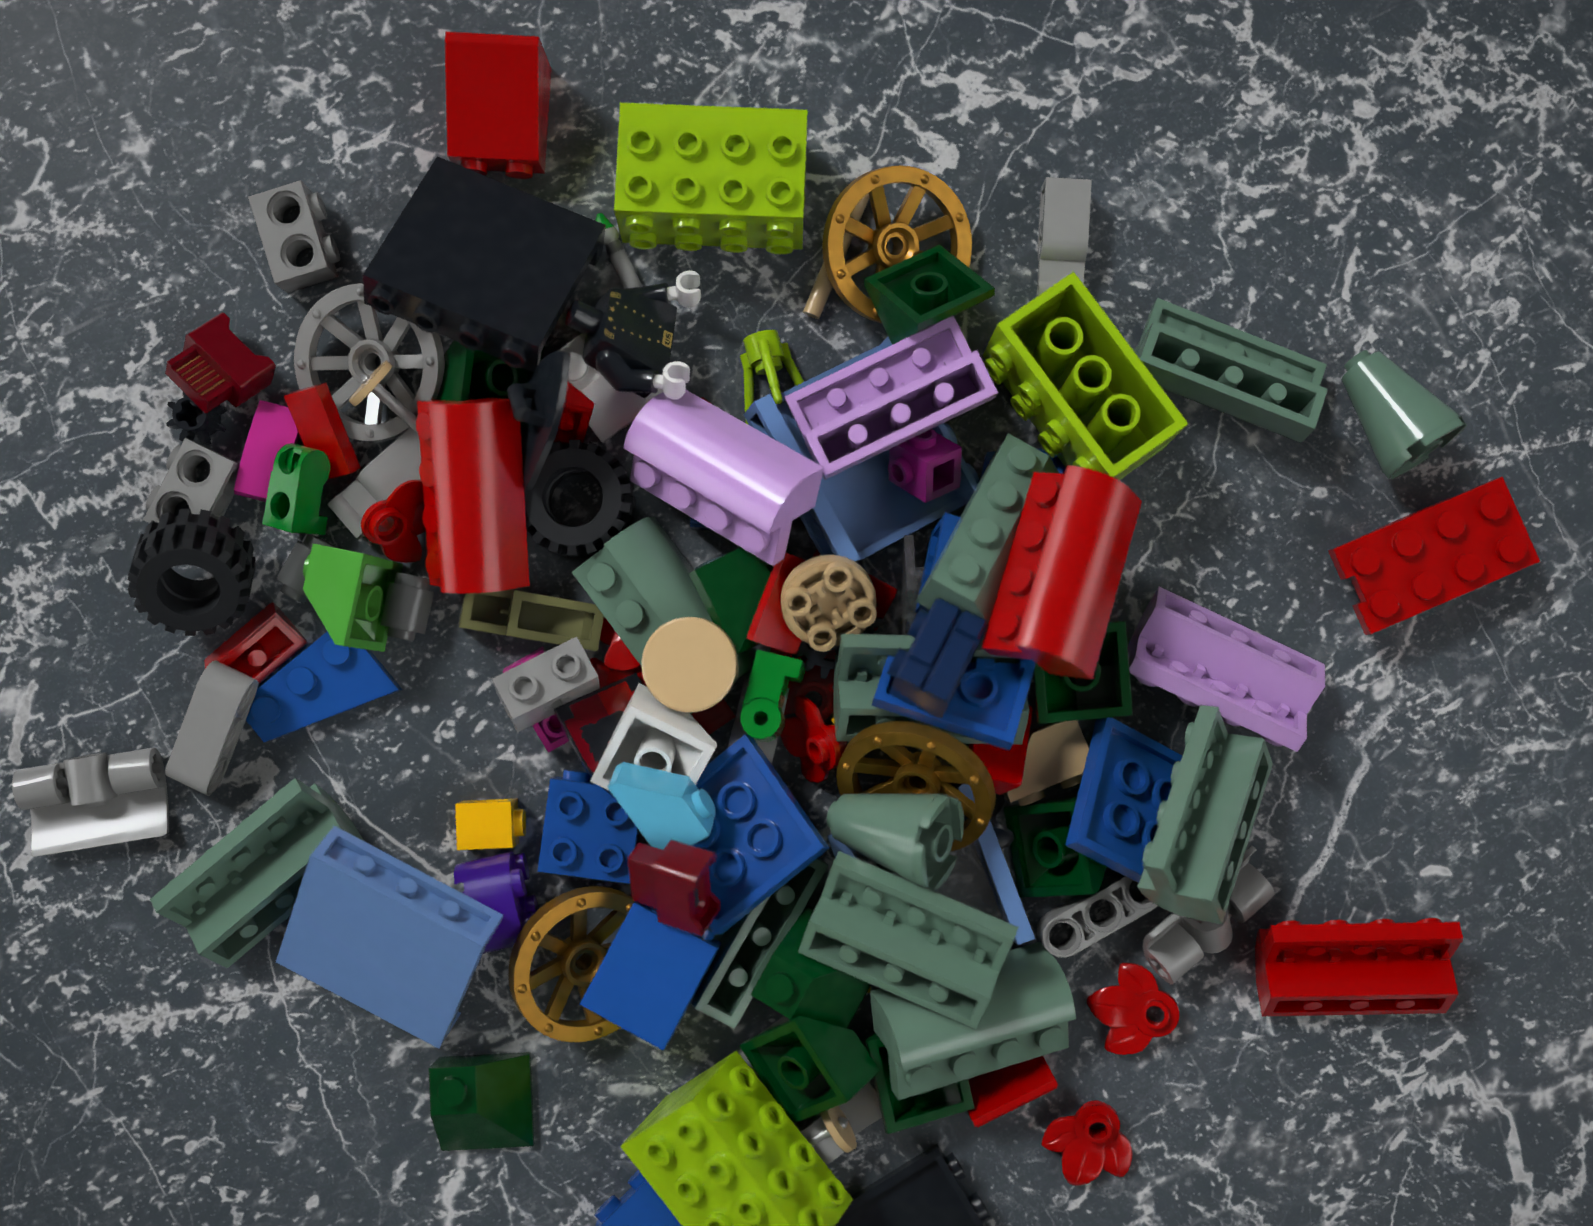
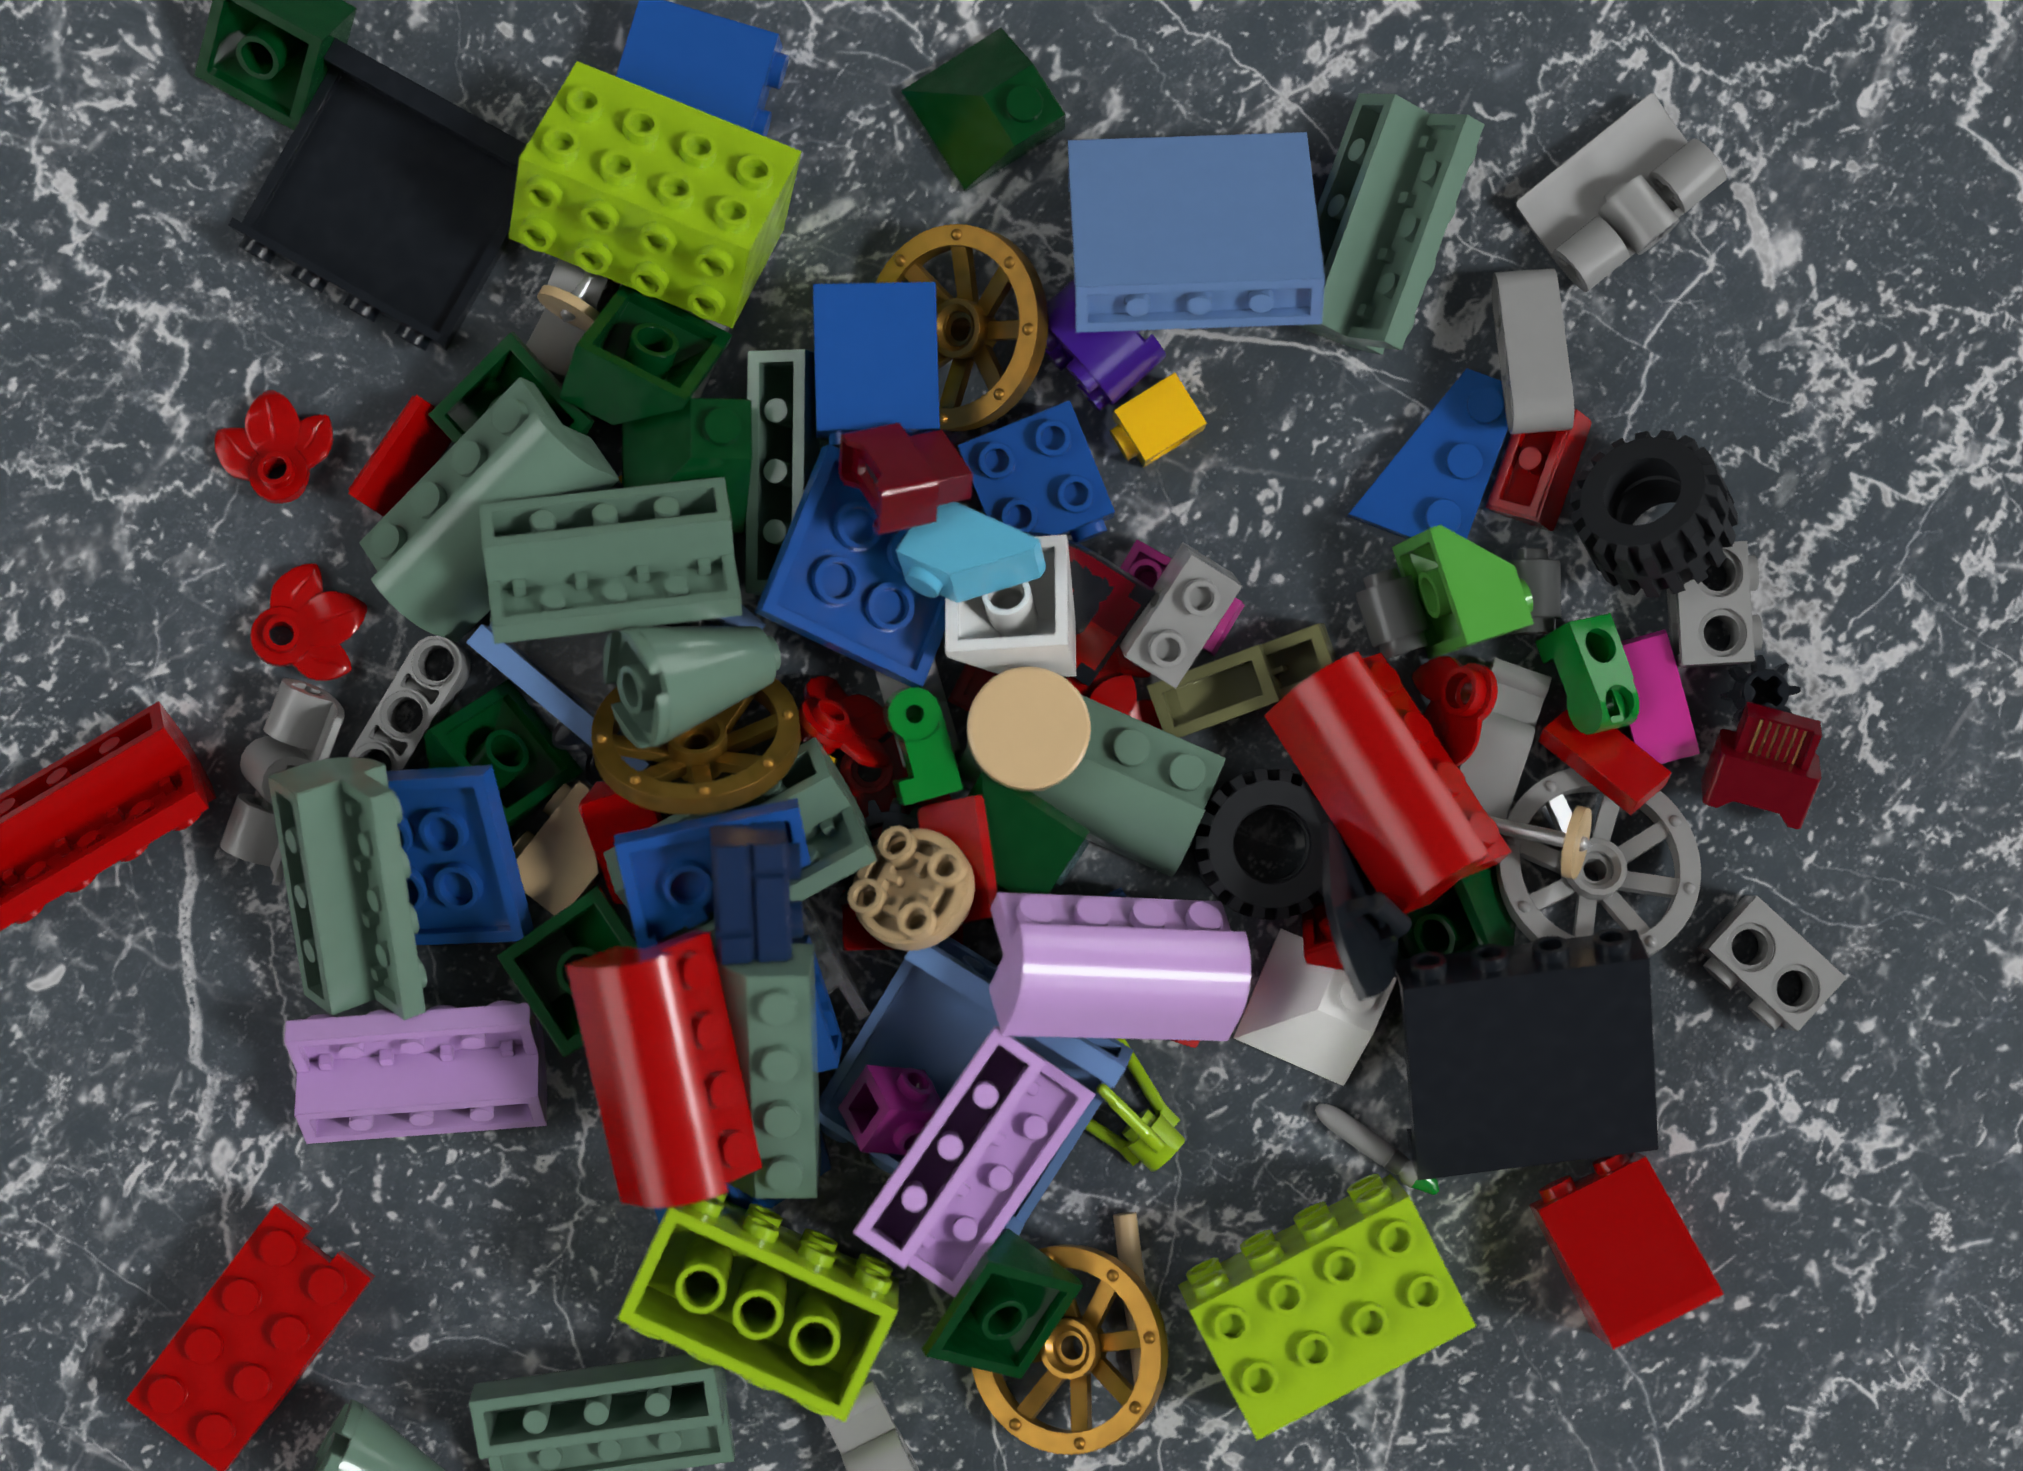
camera: 150 degrees right, 0 degrees up
(633, 335) = (1310, 1067): black torso -> none

